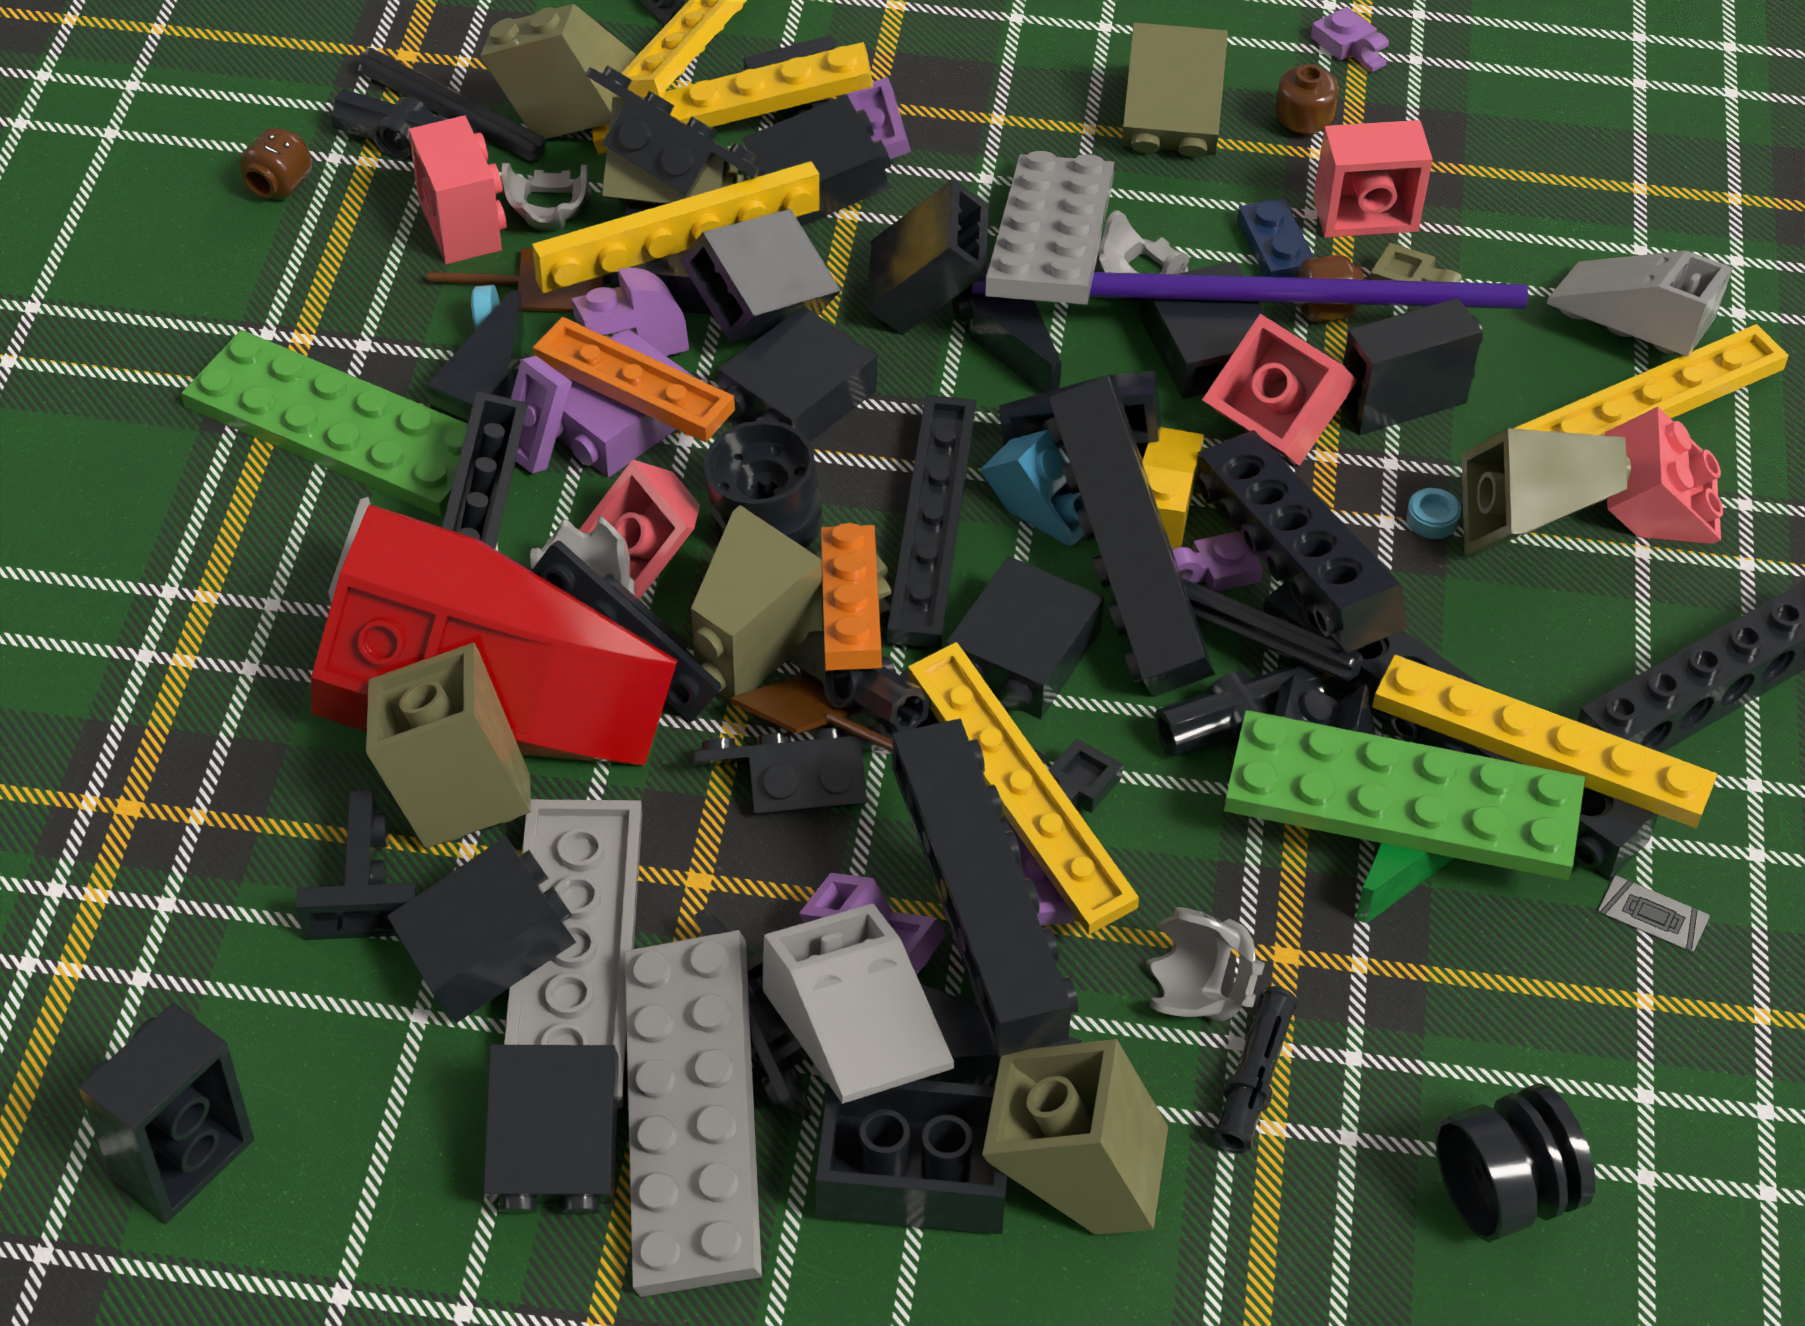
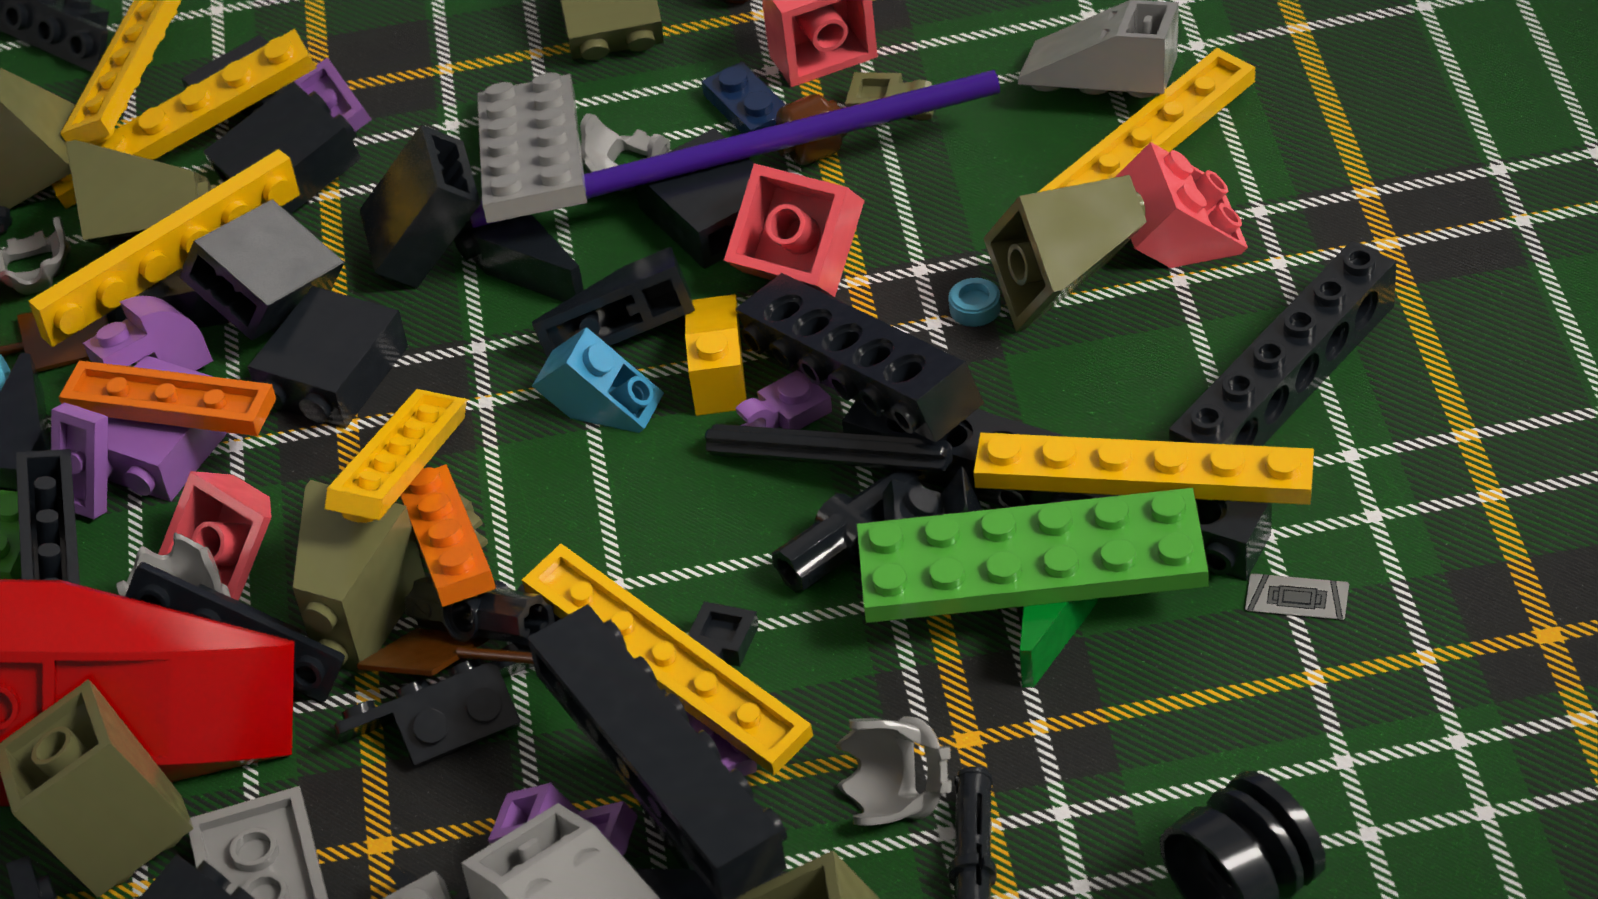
camera: 10 degrees left, 5 degrees down
(662, 143) = (126, 171): black bracket -> none
(770, 474) = (314, 443): black wheel -> none
(827, 505) = (395, 456): none -> yellow plate
(932, 522) = (501, 448): black plate -> none
(1028, 634) = (628, 519): black brick -> none
(1130, 537) = (697, 401): black brick -> none
(1411, 365) = (910, 173): black brick -> none

